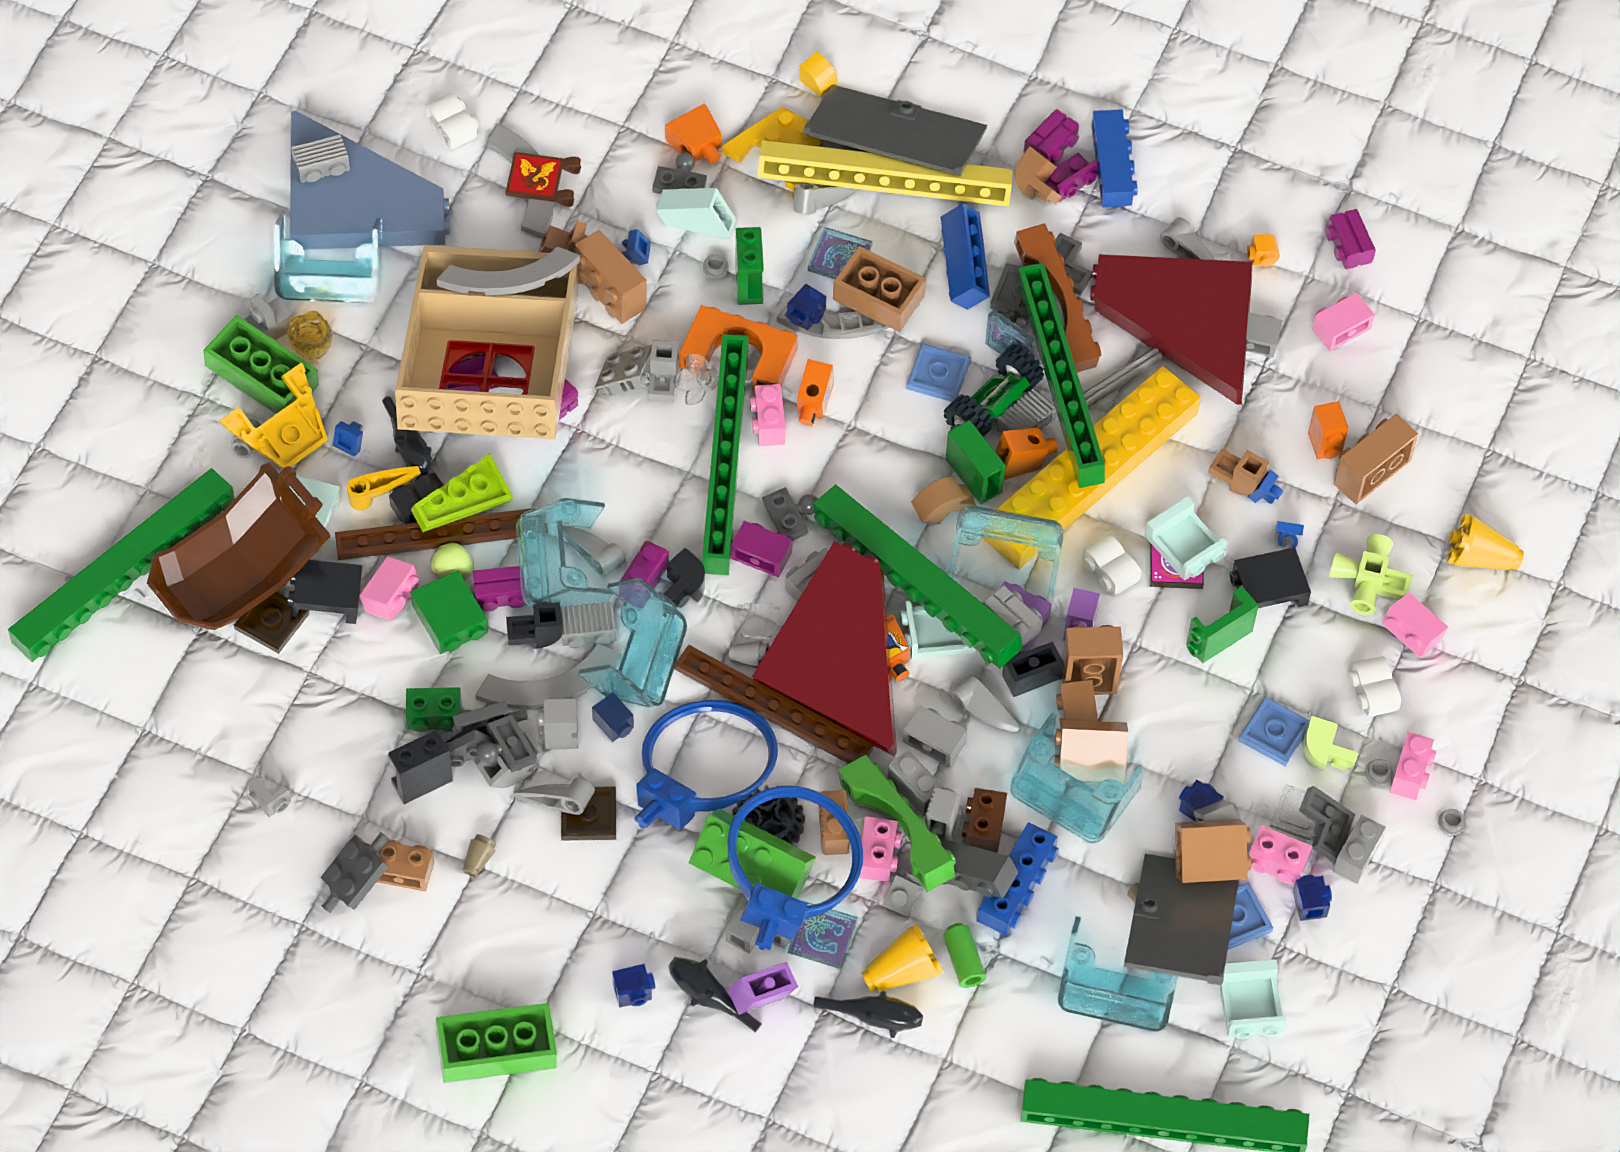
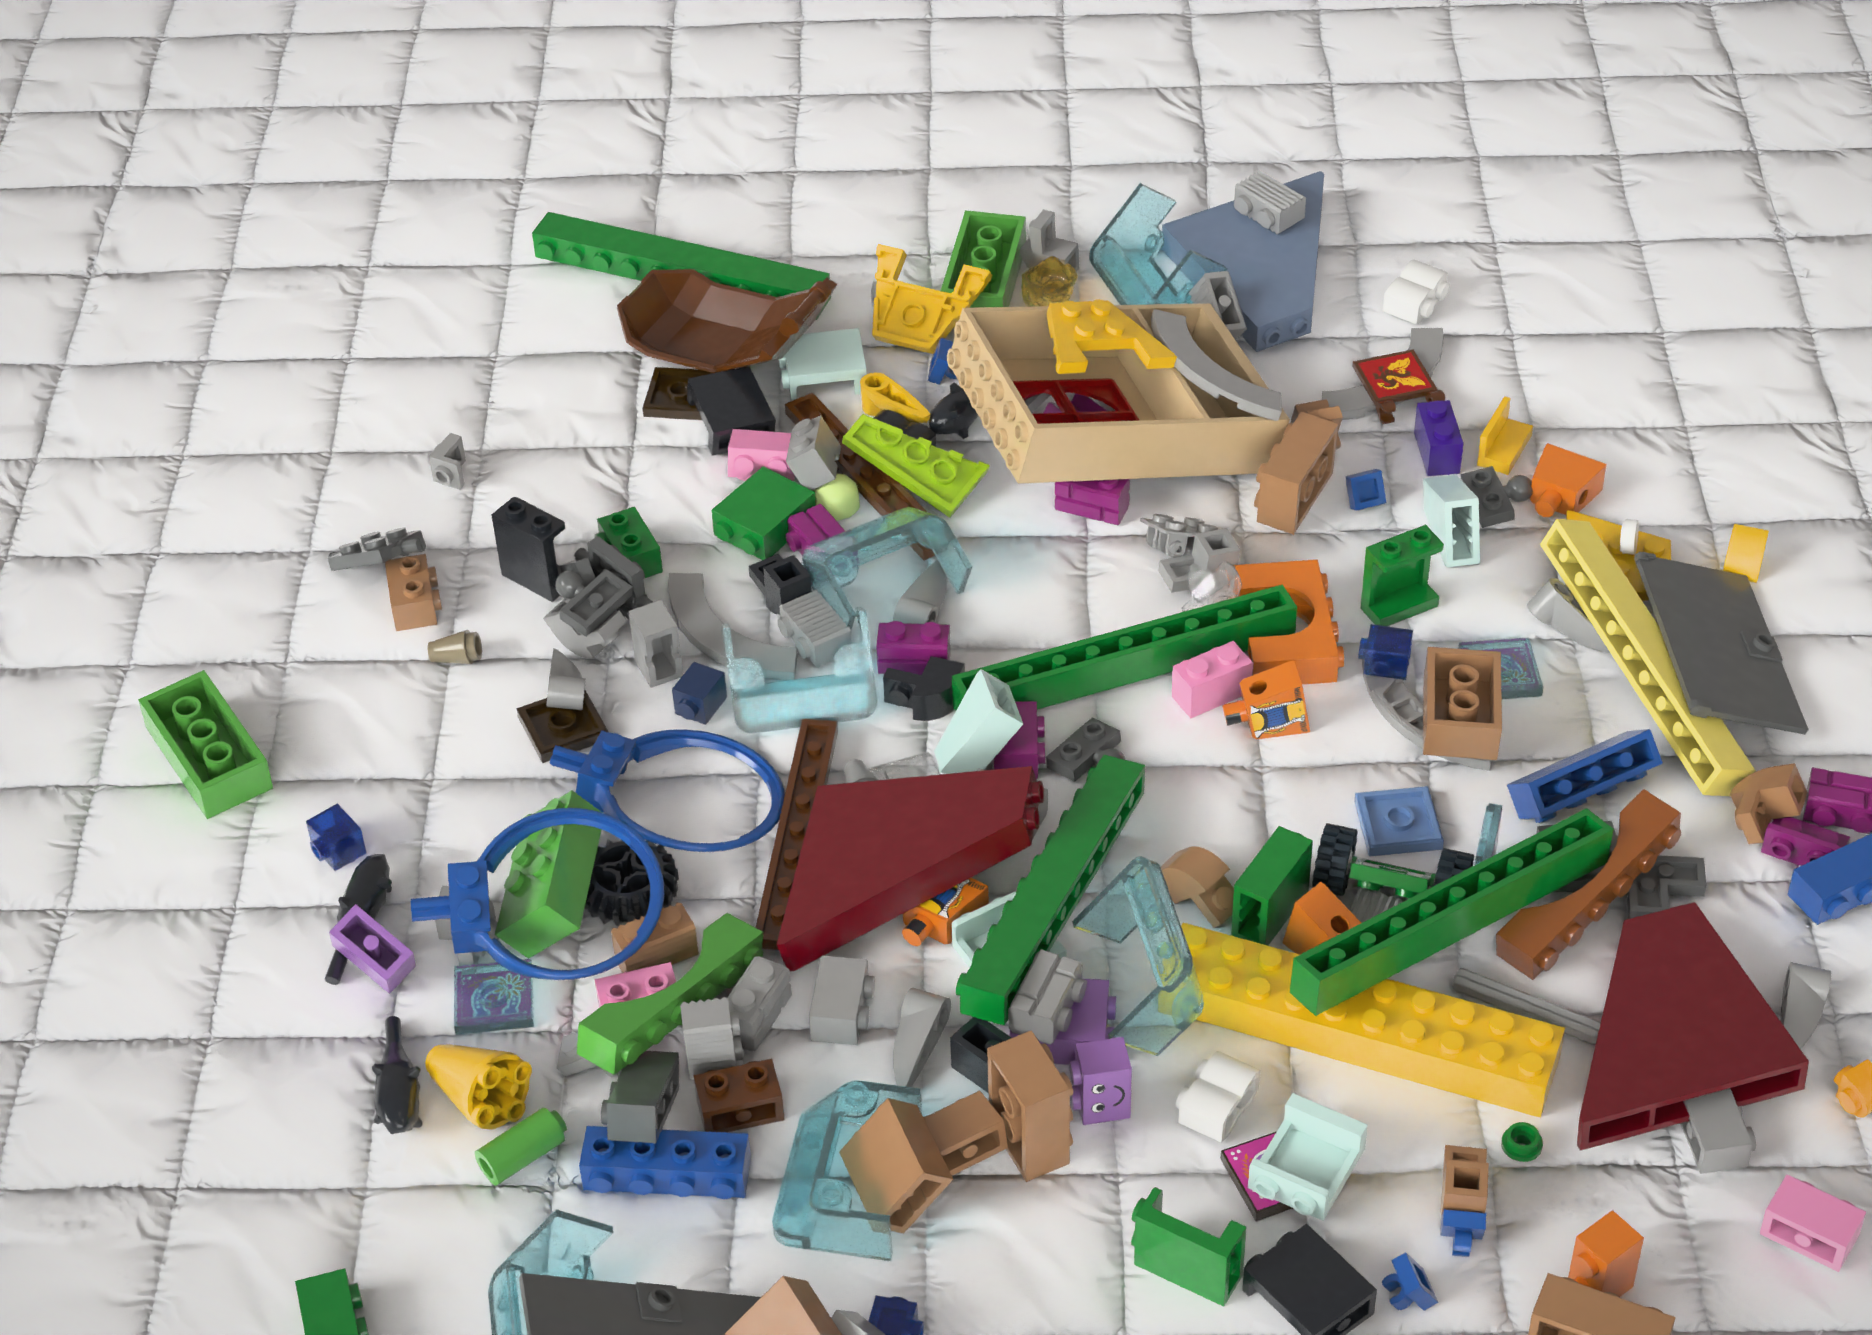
camera: 70 degrees right, 15 degrees down
(406, 243) = (1220, 293): none -> light grey brick
(423, 554) = (813, 453): none -> light grey brick
(446, 320) = (1100, 327): none -> yellow wing
(614, 182) = (1438, 438): none -> dark purple brick
(633, 147) = (1503, 440): none -> yellow panel
(758, 562) = (979, 726): none -> light aqua slope
(780, 126) = (1629, 536): none -> white tile
(1216, 424) = (1522, 1134): none -> green plate

